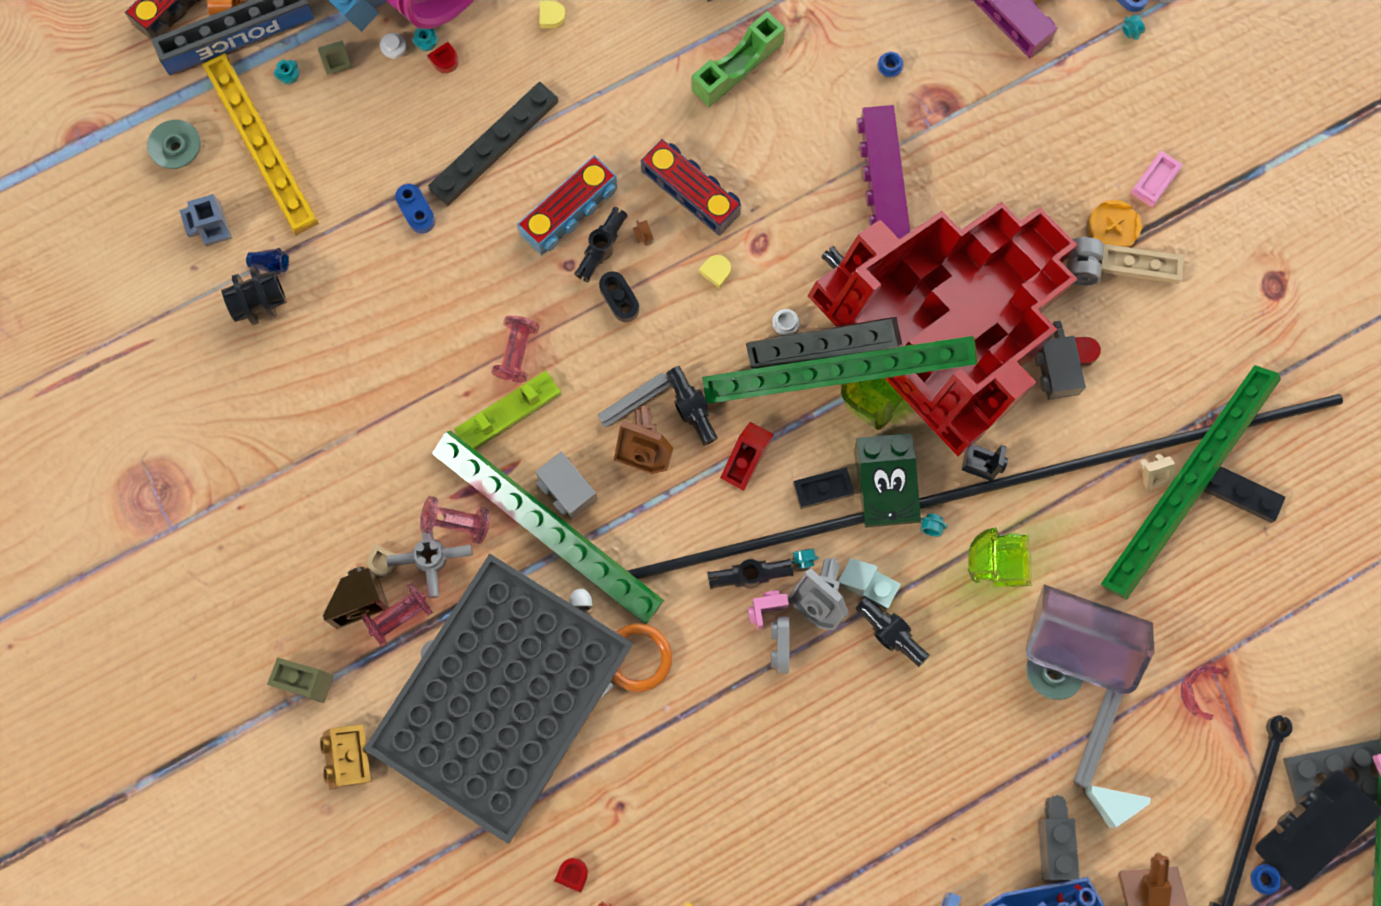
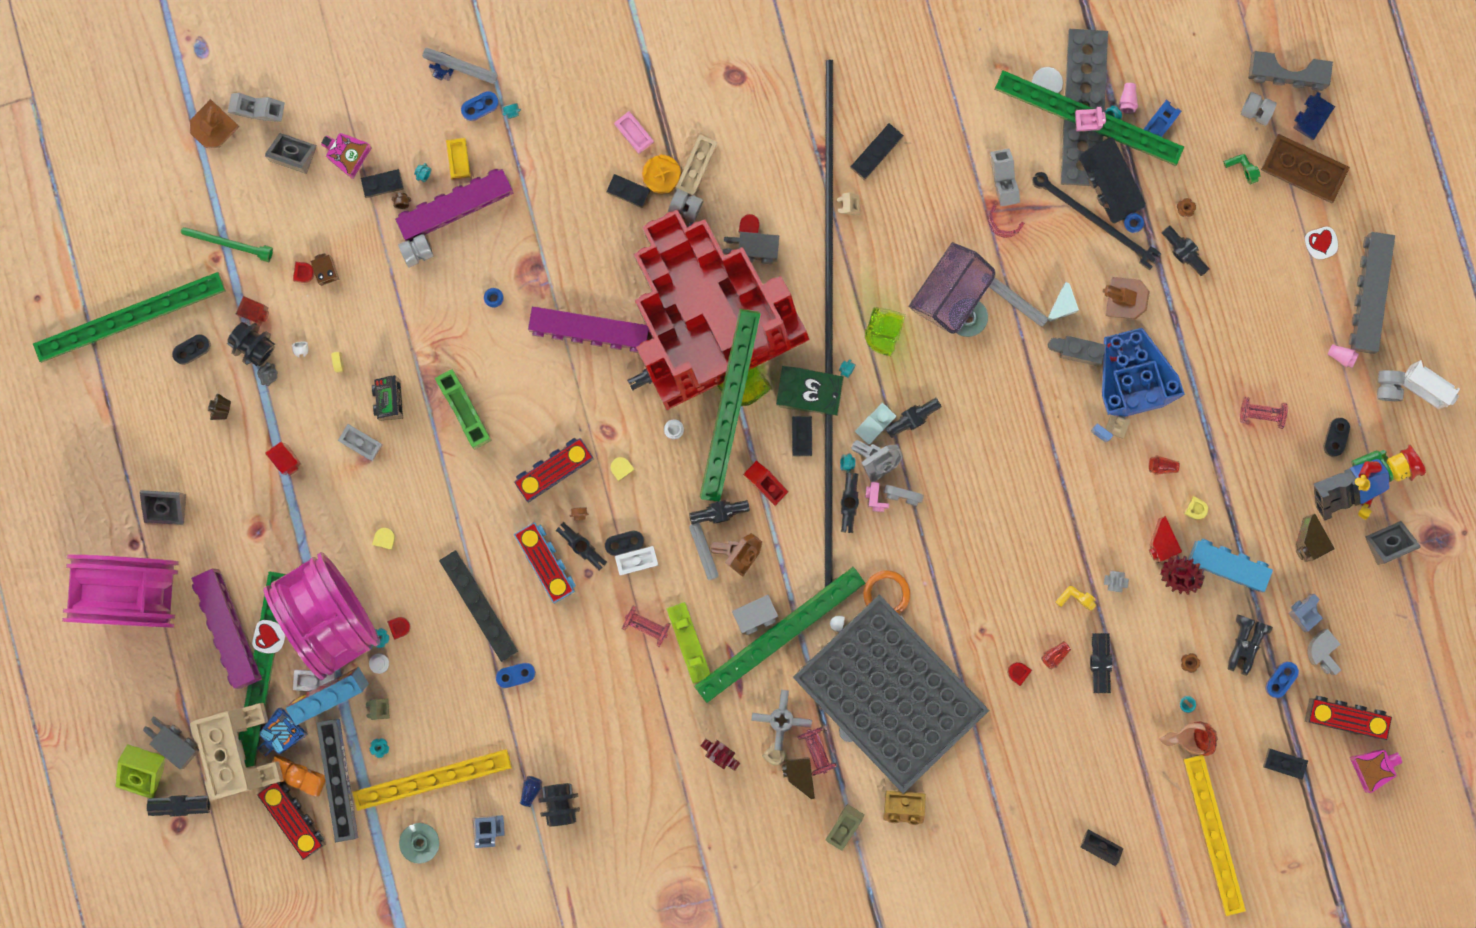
camera: 75 degrees left, 10 degrees up
(363, 483) = (720, 754): none -> dark red gear
(456, 520) = (768, 683): clear pink hose -> none
(599, 317) = (636, 560): none -> white plate
(825, 343) = (706, 409): pearl dark grey plate -> none
(985, 462) = (813, 319): black bracket -> none
(1079, 190) = (628, 191): none -> black plate
(1190, 482) = (862, 183): green plate -> none
(1267, 674) = (1004, 177): none -> light grey brick

